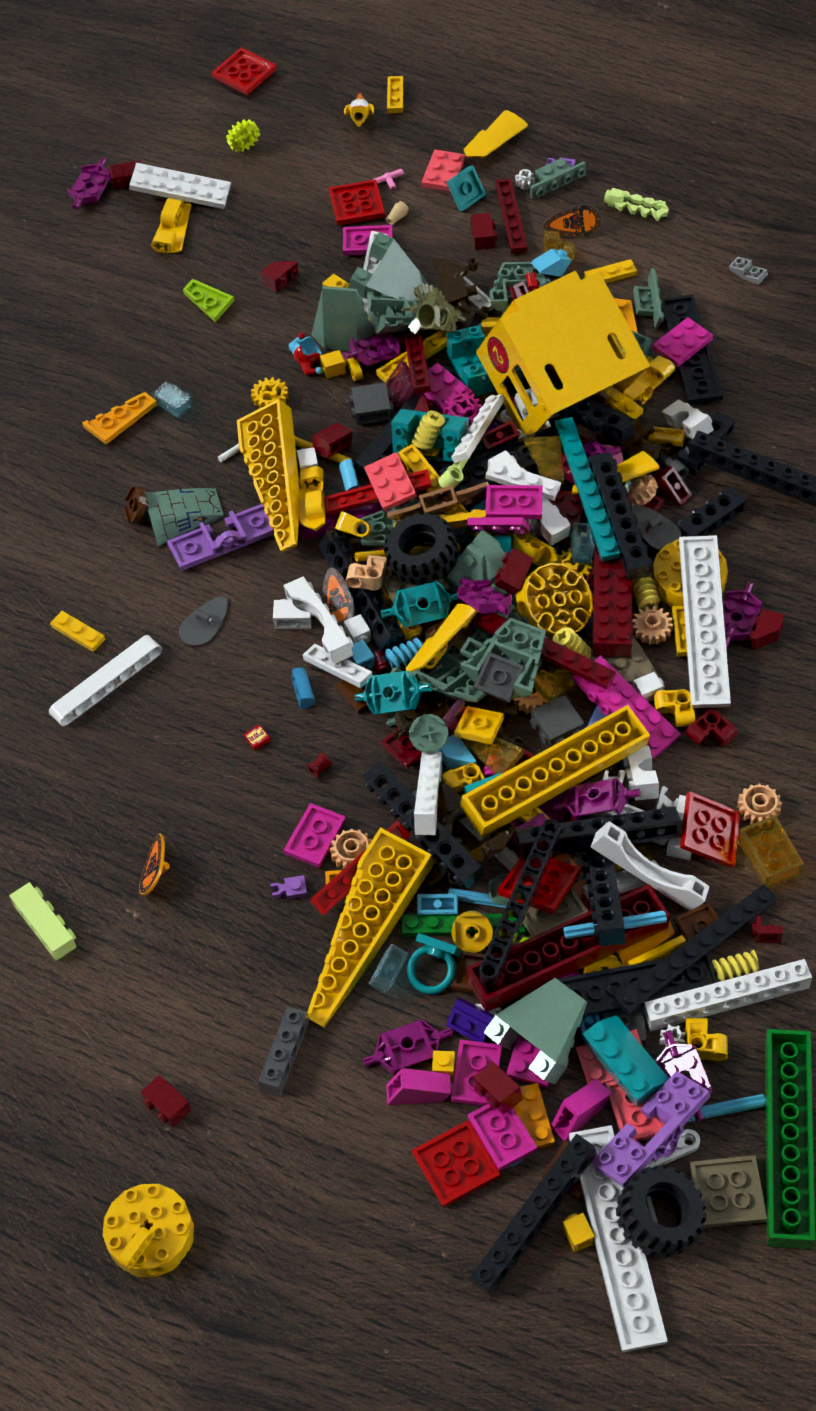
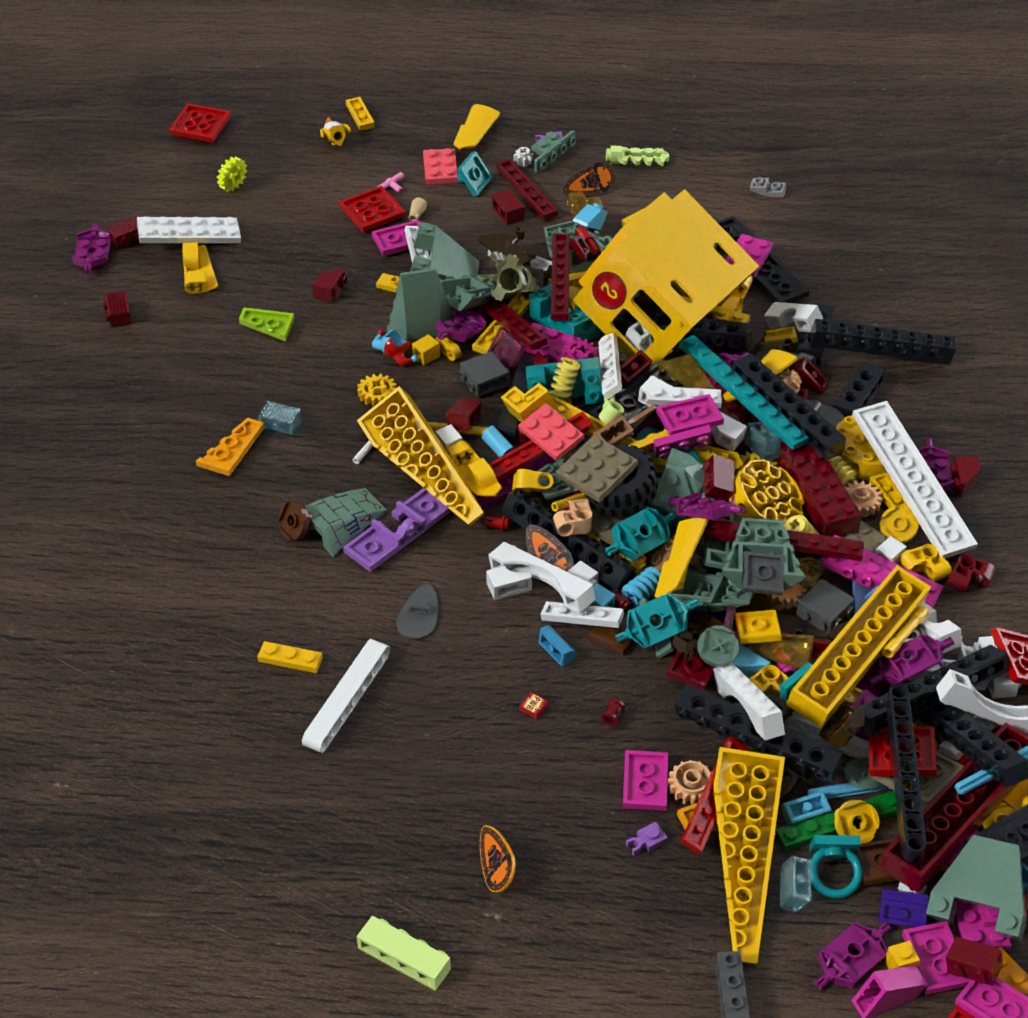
camera: 25 degrees left, 10 degrees down
(84, 252) = (118, 308): none -> dark red brick
(315, 556) = (497, 522): none -> red pin
(381, 446) = (524, 405): none -> yellow panel
(400, 532) = (597, 468): none -> dark tan plate
(482, 322) = (560, 277): none -> dark red tile
(587, 779) = (895, 643): none -> yellow piece
(671, 662) = (899, 524): none -> yellow tile

